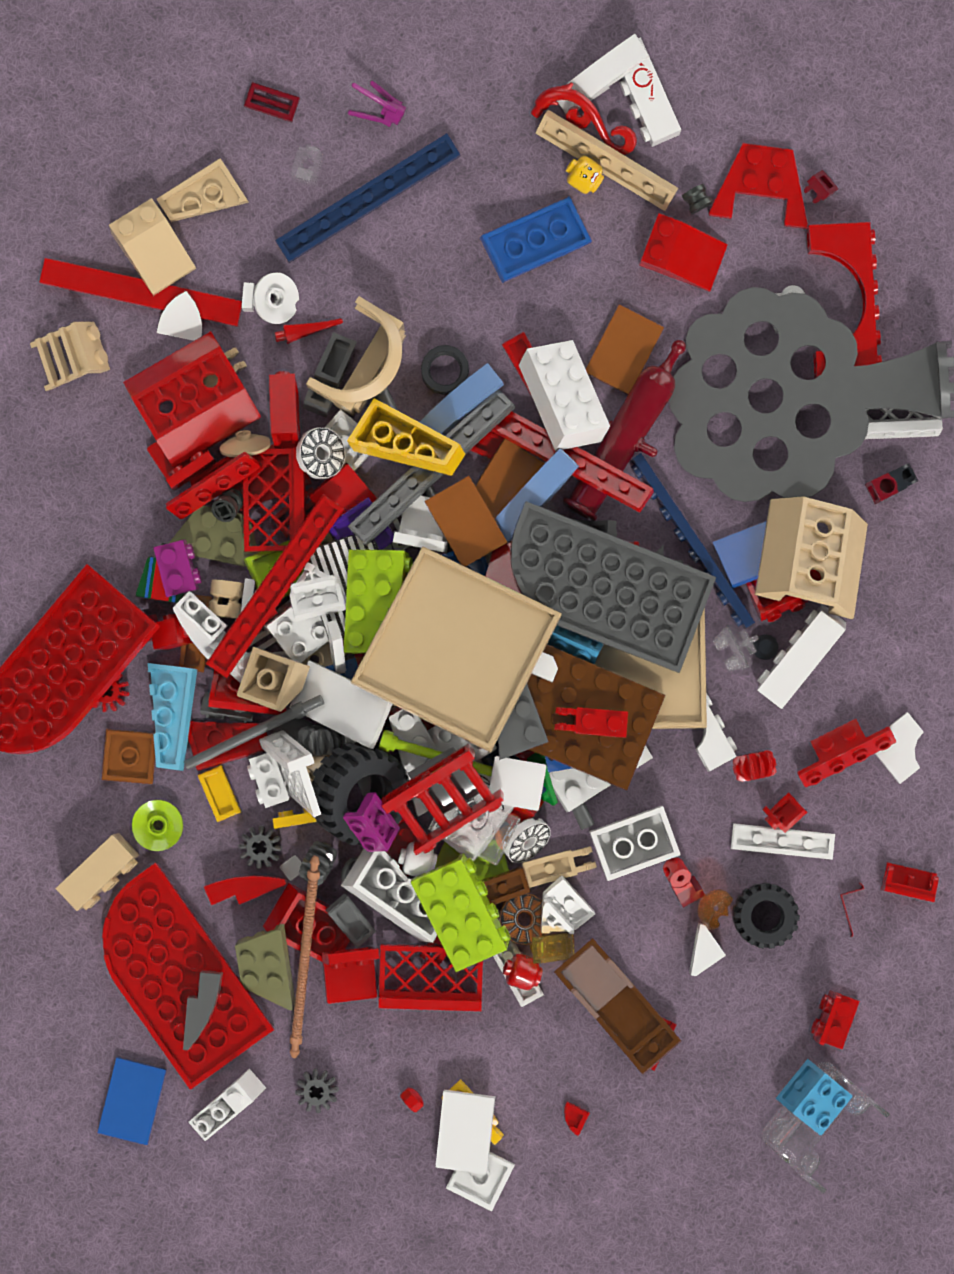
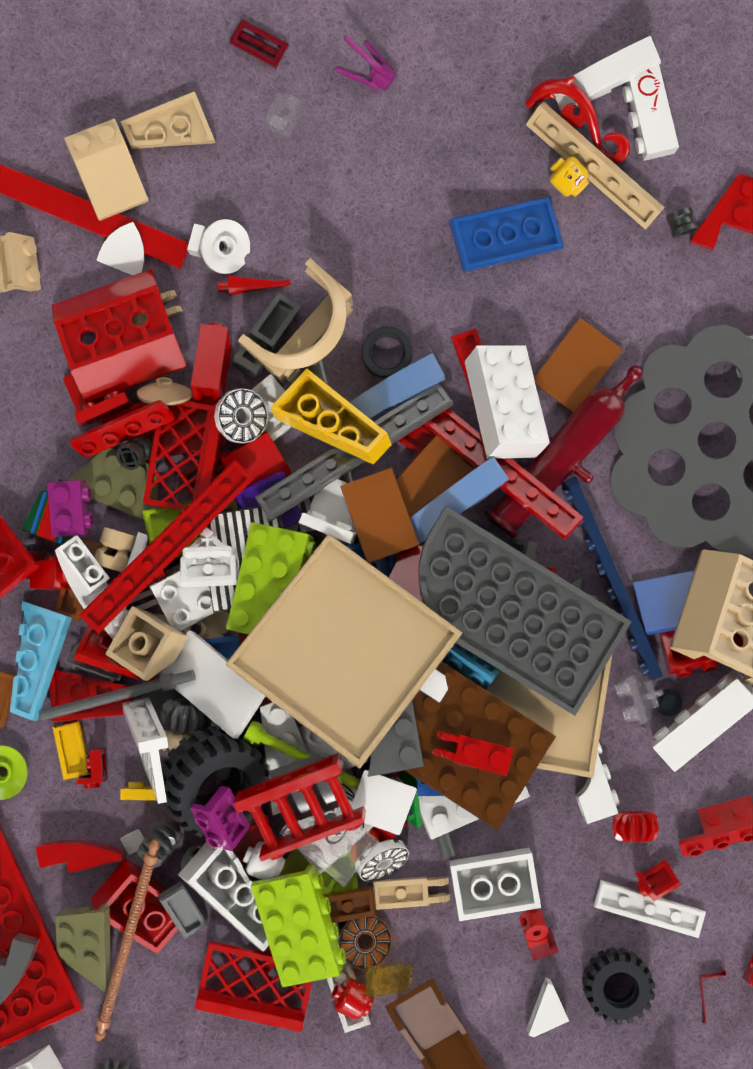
camera: 20 degrees right, 0 degrees up
(245, 801) = (97, 764): none -> red bracket
(262, 855) = (103, 804): dark grey gear -> none
(269, 780) = (124, 751): white bracket -> none
(336, 647) = (219, 622): white tile -> none
(350, 974) = (172, 965): red bracket -> none
(368, 198) = (340, 160): dark blue plate -> none
(563, 908) = (407, 938): white slope -> none
(683, 253) = (656, 275): red slope -> none
(705, 907) = (556, 967): clear orange hair -> none

